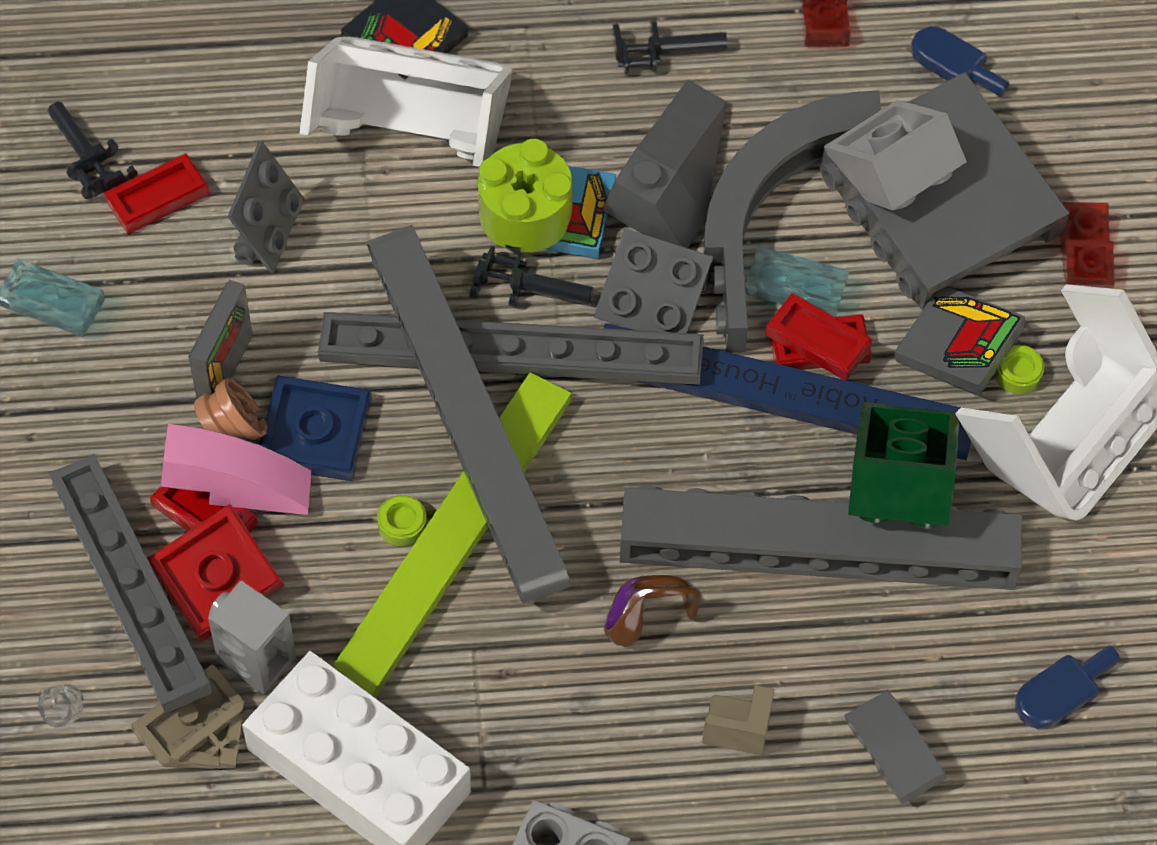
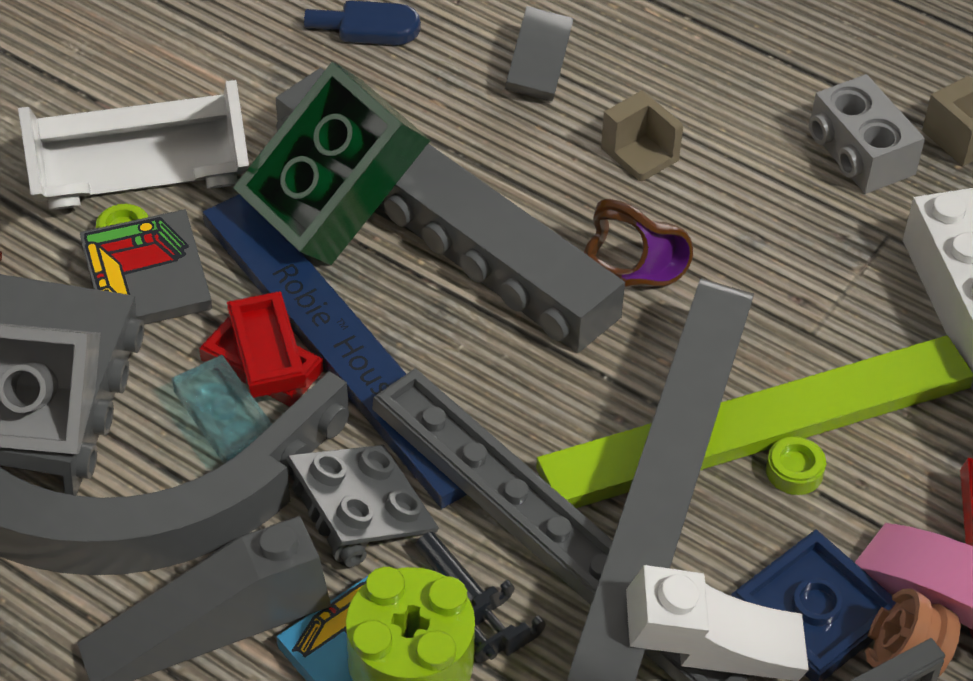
camera: 140 degrees left, 10 degrees down
(351, 316) = (711, 629): none -> white slope

